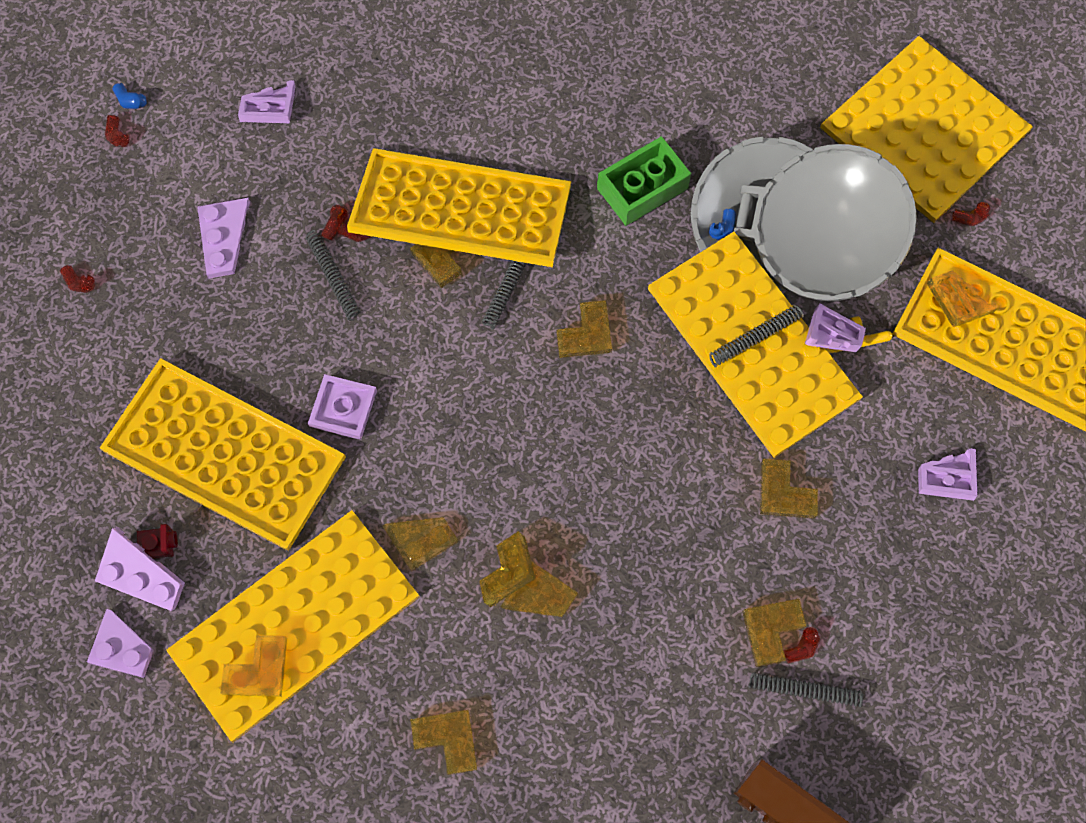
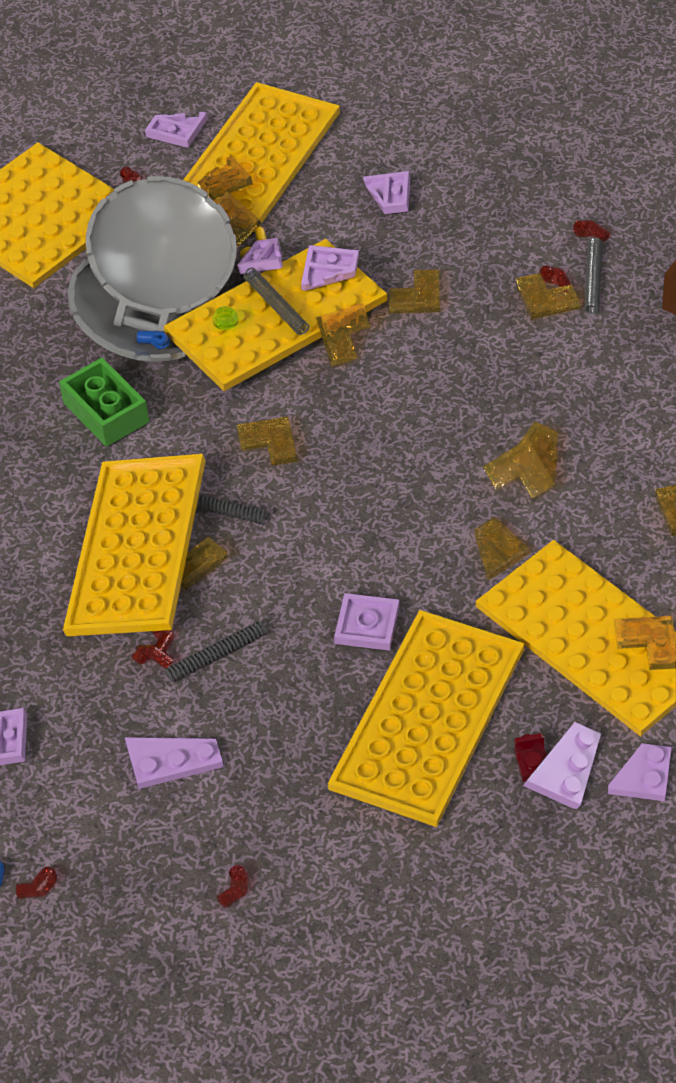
camera: 90 degrees left, 20 degrees down
(721, 398) = (336, 332): none -> clear yellow plate
(730, 285) = (225, 318): none -> clear neon green plate
(805, 390) = (328, 266): none -> lavender wing
(883, 696) = (590, 229): none -> clear red arm
(896, 313) = (241, 219): none -> clear yellow plate
(1056, 260) = (176, 128): none -> lavender wing

